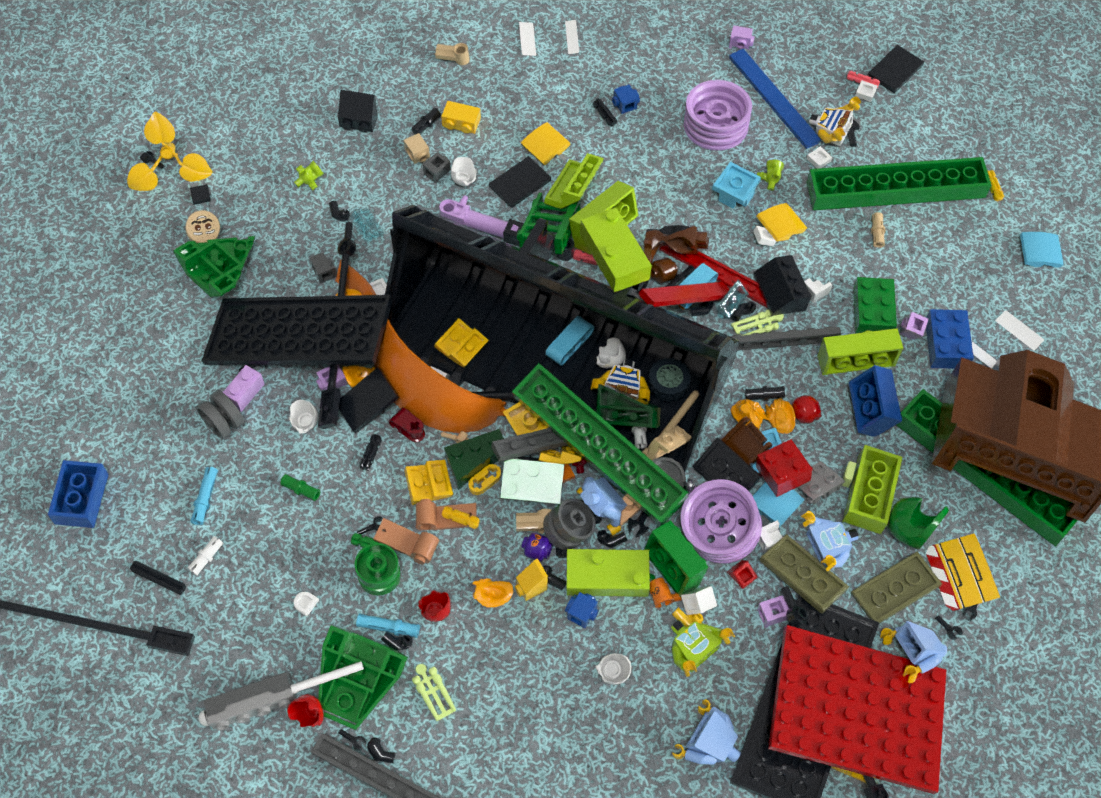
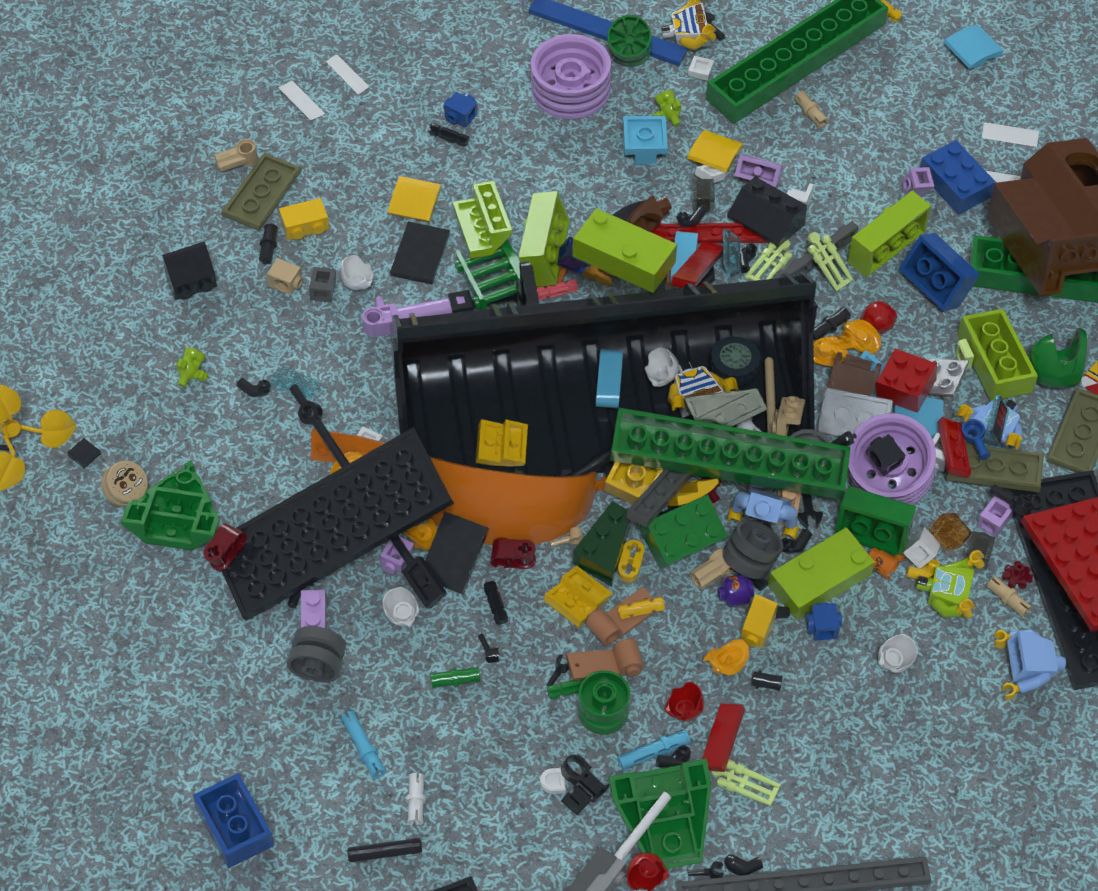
camera: 35 degrees left, 5 degrees down
(224, 305) = (224, 545): none -> dark red piece
(319, 623) = (587, 787): none -> black piece
(323, 267) = (289, 452): dark grey brick -> none
(338, 487) = (491, 654): none -> black hand
(442, 648) = (723, 736): none -> red tile
(451, 85) = (261, 191): none -> olive tile
(506, 626) = (766, 680): none -> black pin
(713, 513) = (885, 454): none -> black brick
(722, 261) = (690, 220): none -> black arm
(729, 601) = (950, 531): none -> clear orange panel
(737, 678) = (1009, 596): none -> tan pin
(742, 573) = (939, 501): red slope -> none
(743, 628) = (982, 542): none -> clear smoke brick
(746, 248) = (703, 194): none -> clear smoke brick
(757, 666) = (1017, 574): none -> dark red plant
(778, 111) = (630, 40): none -> green wheel
(780, 540) = (954, 447): none -> red tile
(797, 323) = (819, 253): none -> yellowish green piece
(804, 255) = (766, 170): none -> lavender brick
(809, 533) = (976, 428): none -> blue bar
(827, 540) = (996, 422): none -> slope
(874, 304) = (866, 183): green brick -> none

